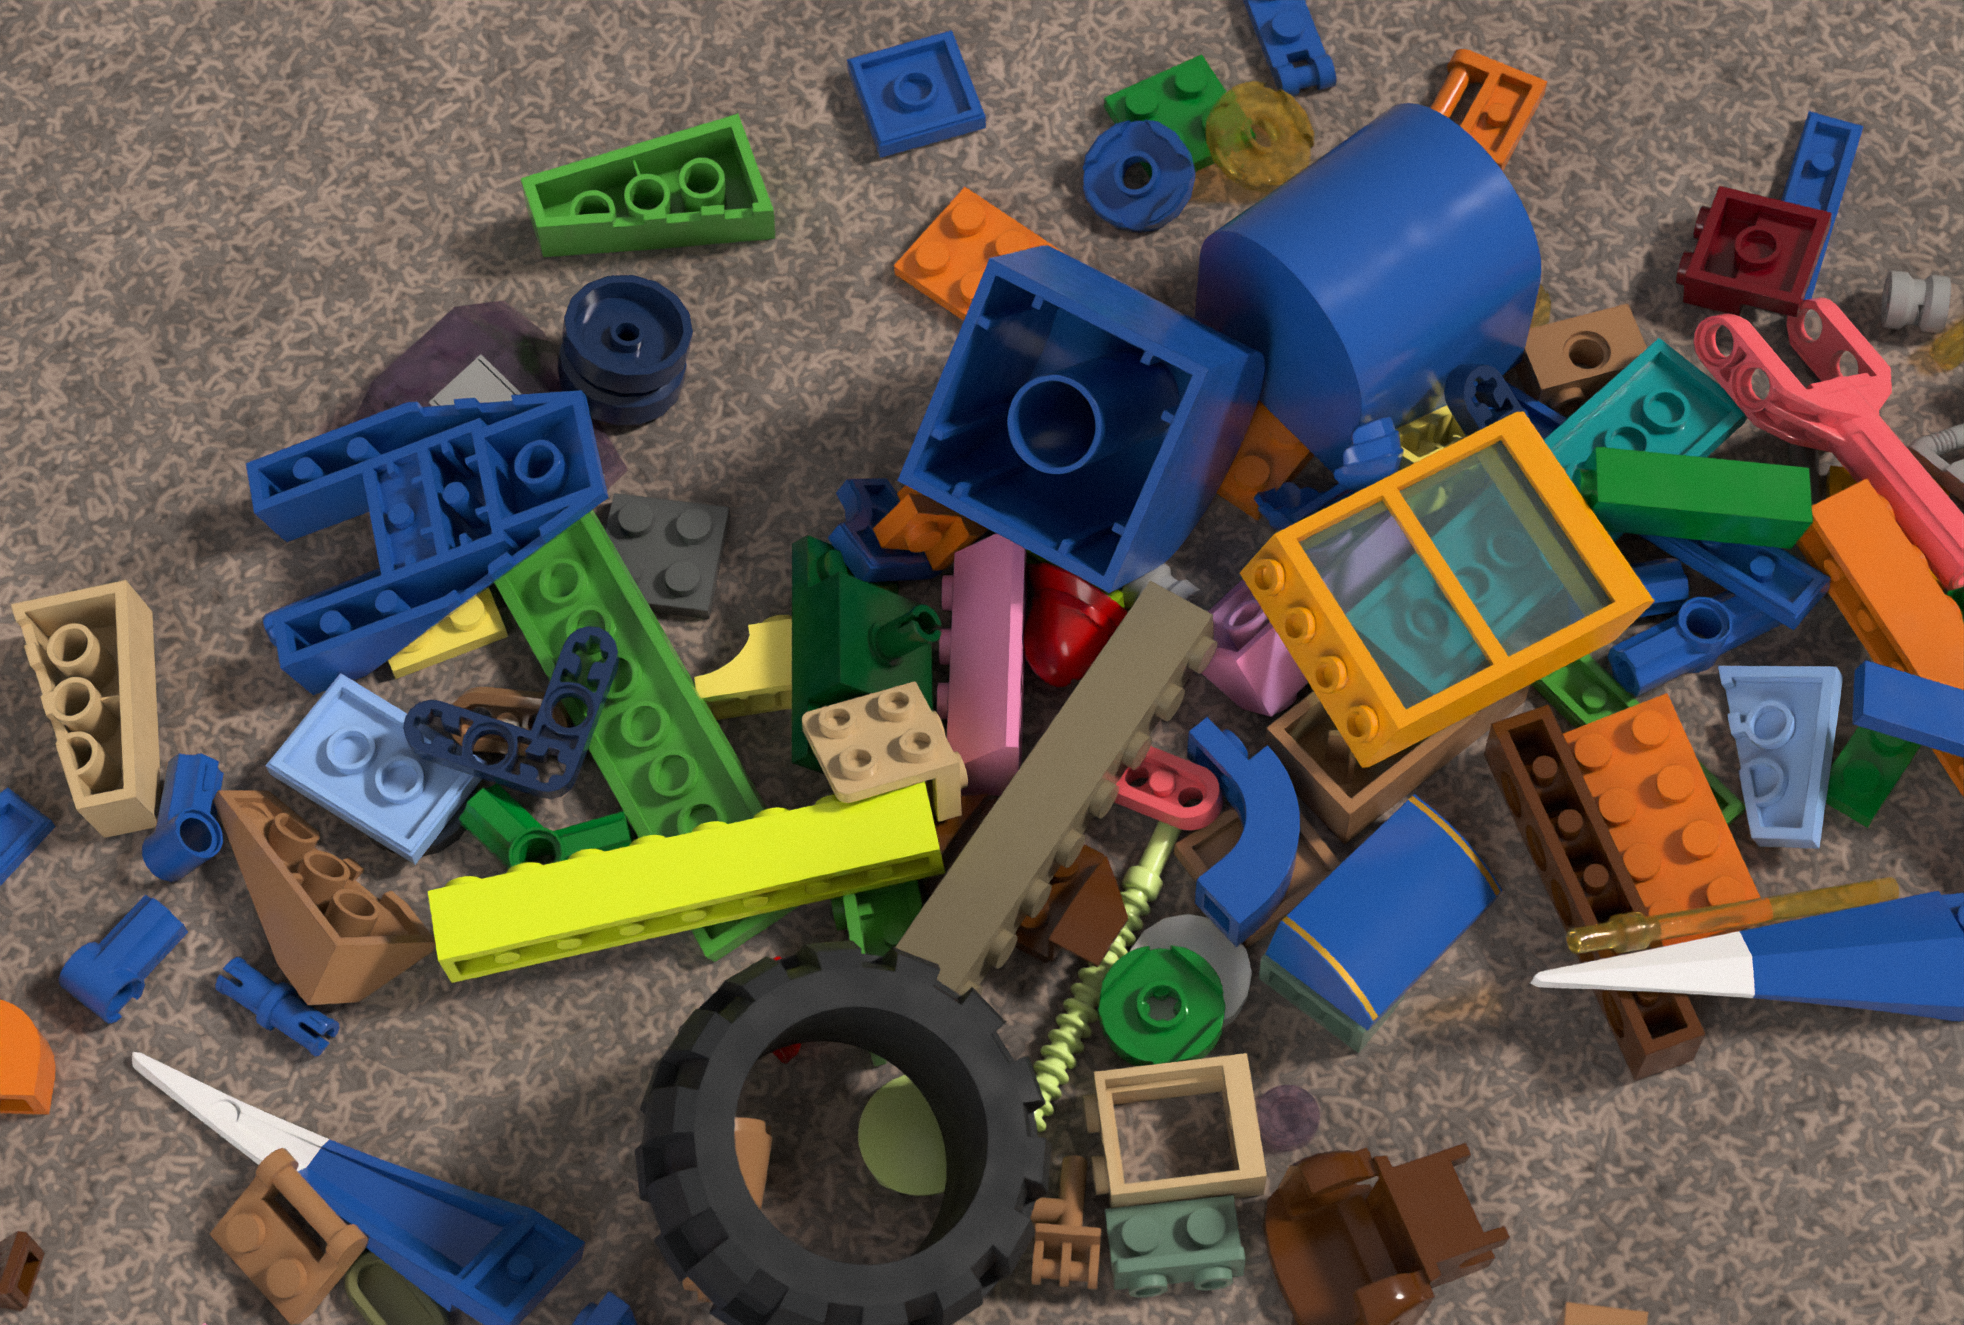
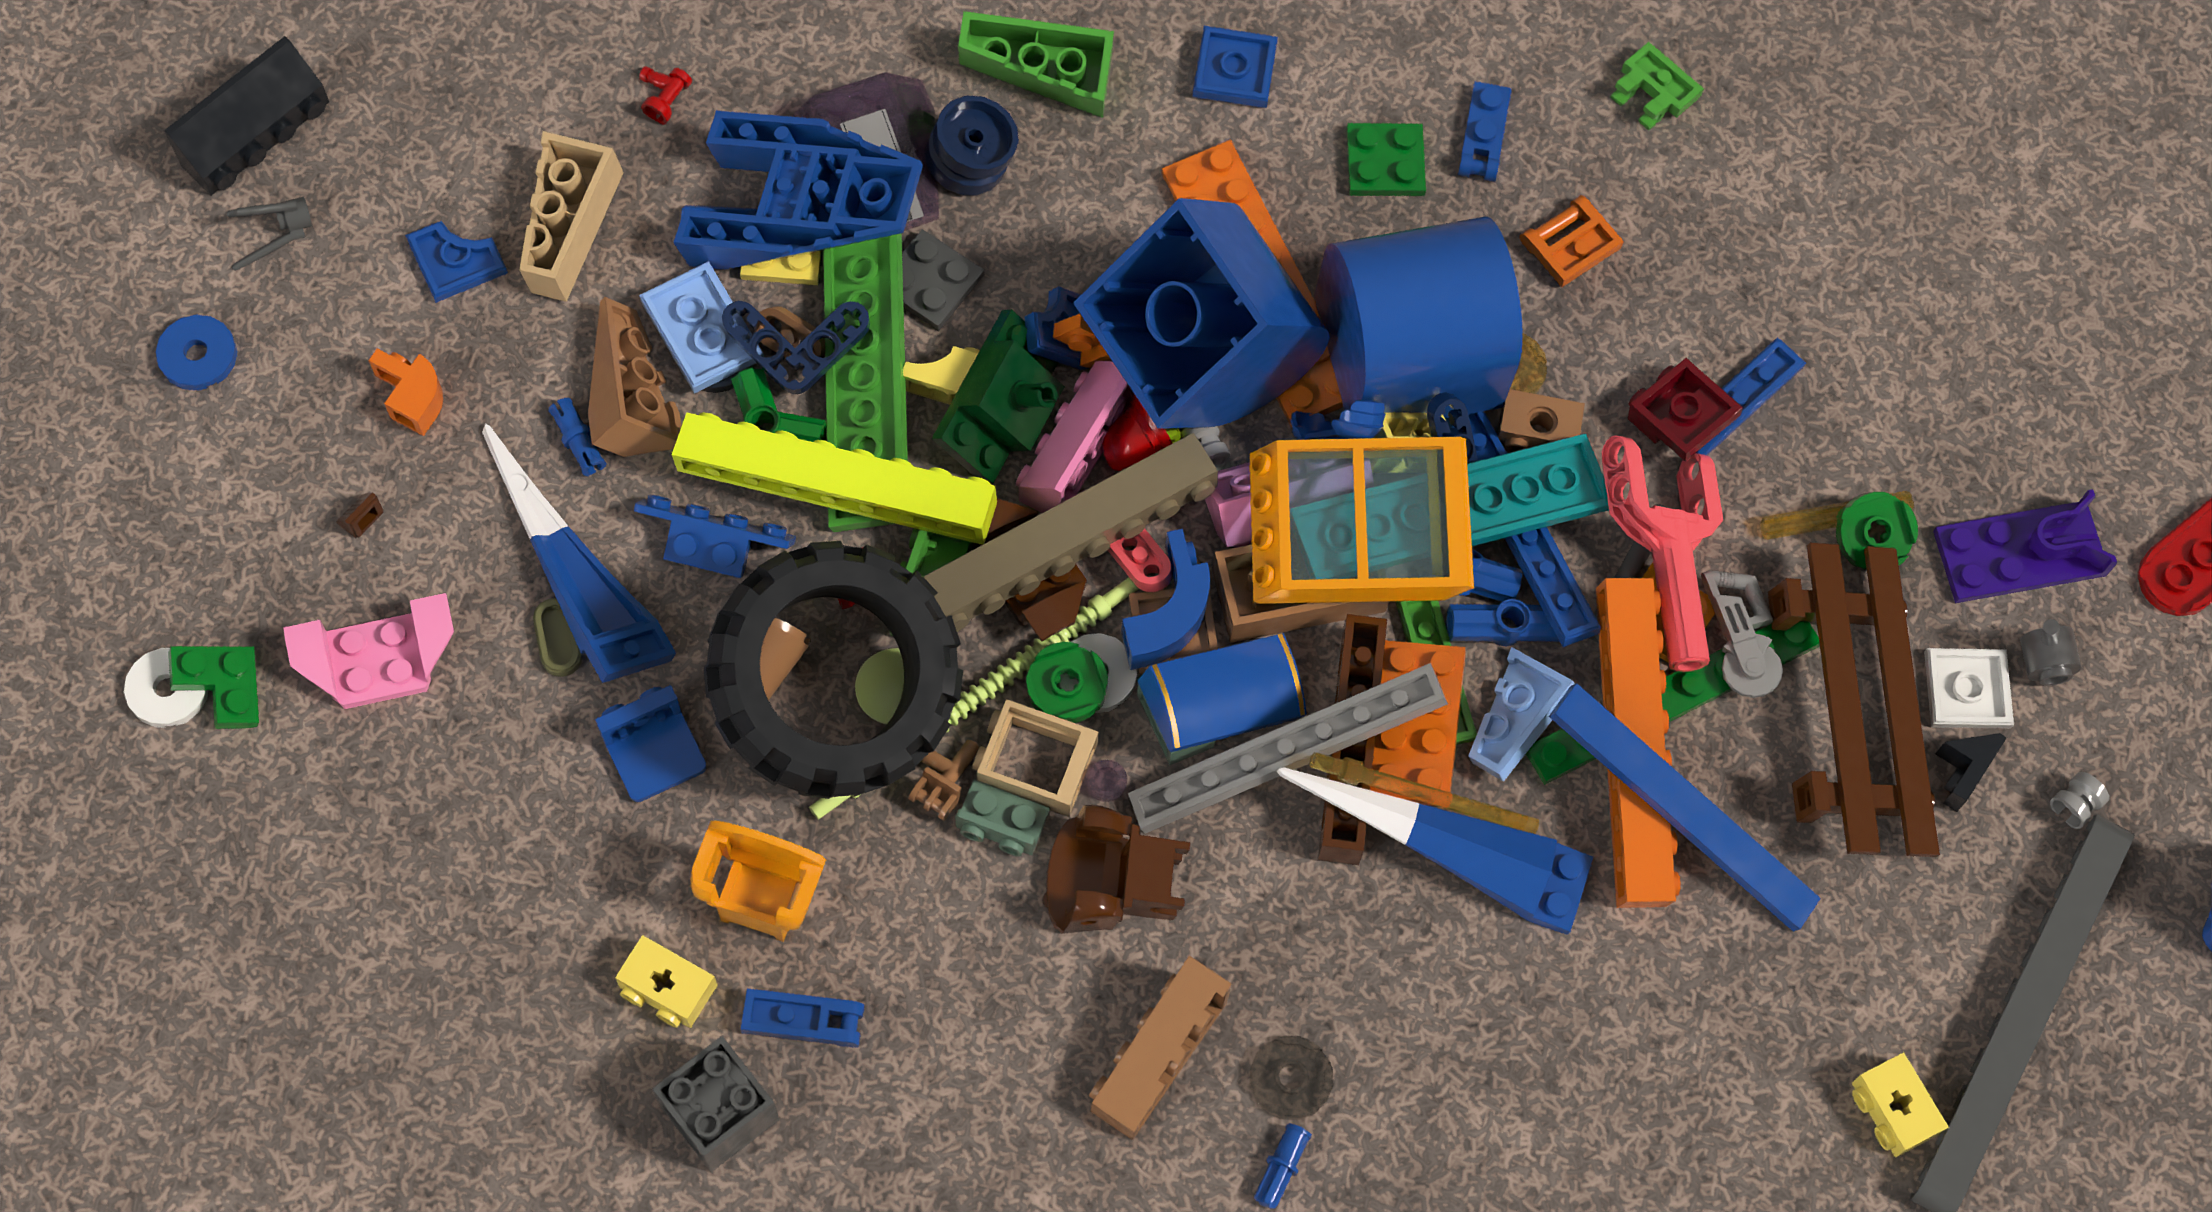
camera: 20 degrees right, 5 degrees up
(115, 969) = (497, 371): blue piece -> none
(160, 466) = (670, 86): none -> red piece
(186, 818) = (580, 303): blue piece -> none
(275, 1248) = (507, 571): medium nougat plate -> none
(547, 1058) = (710, 540): none -> blue bracket
(887, 745) = (986, 454): tan bracket -> none
(1157, 201) = (1347, 201): blue tile -> none
(1240, 155) = (1406, 197): clear yellow tile -> none
(1521, 945) = (1287, 747): none -> light grey plate
(1696, 497) = (1540, 539): green brick -> none
(1915, 302) = (1767, 487): light grey wheel -> none

